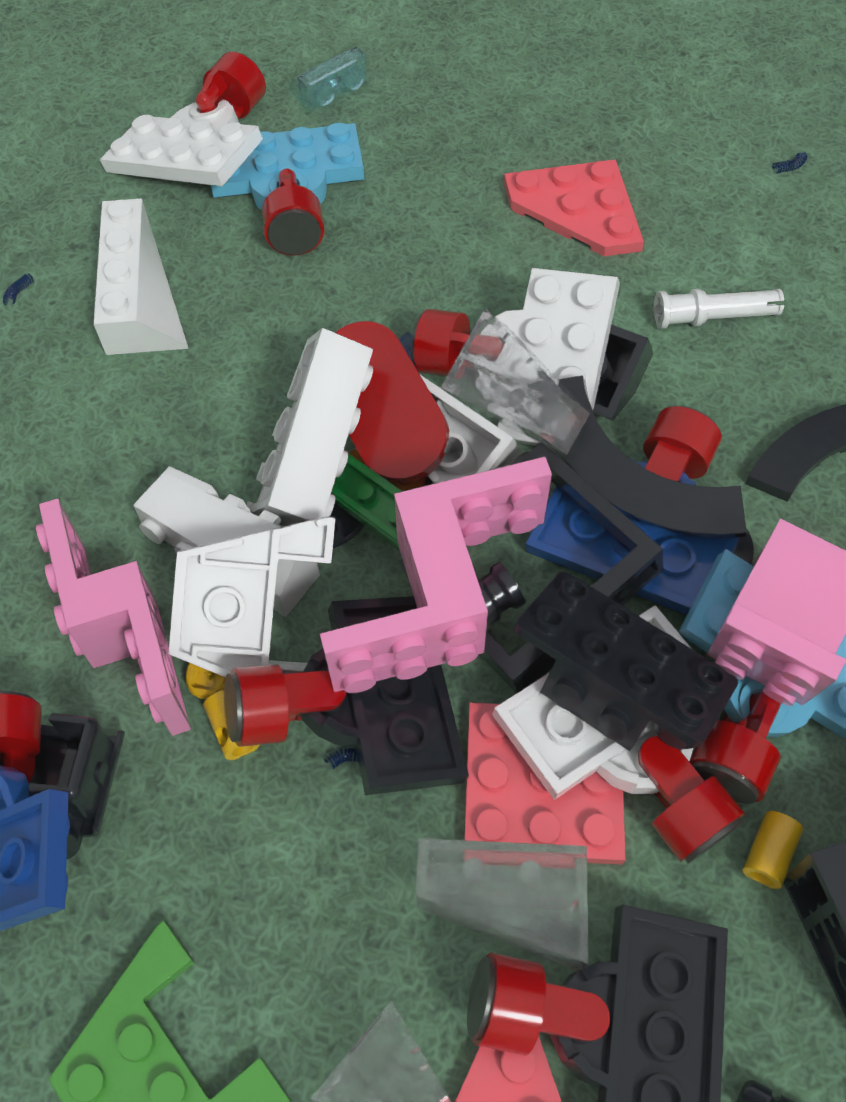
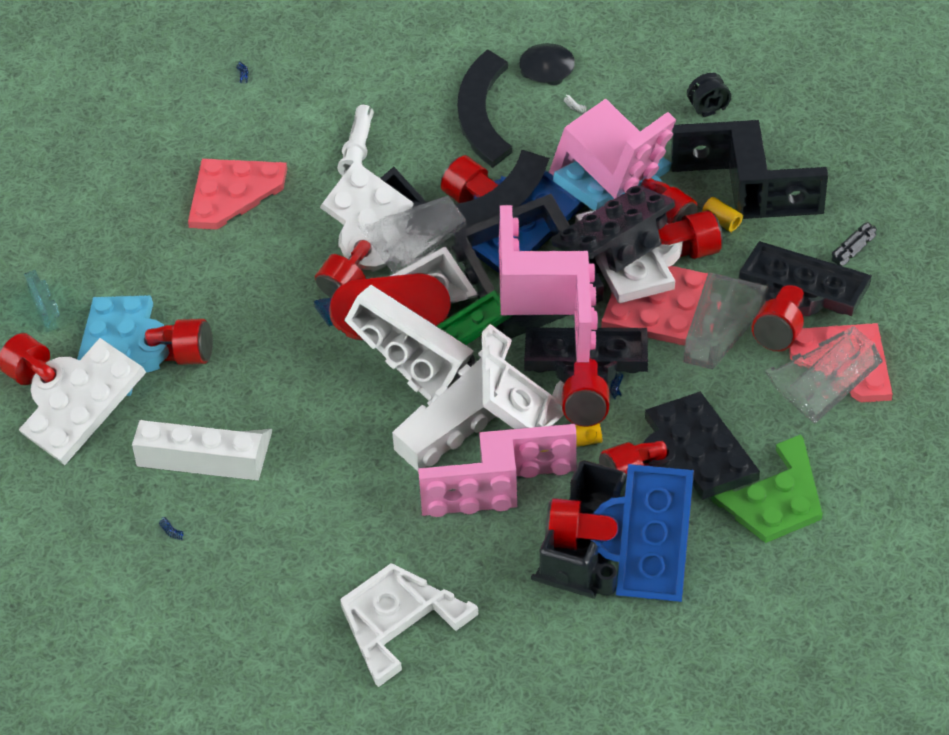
camera: 75 degrees left, 10 degrees down
(217, 898) = (689, 437): none -> black plate

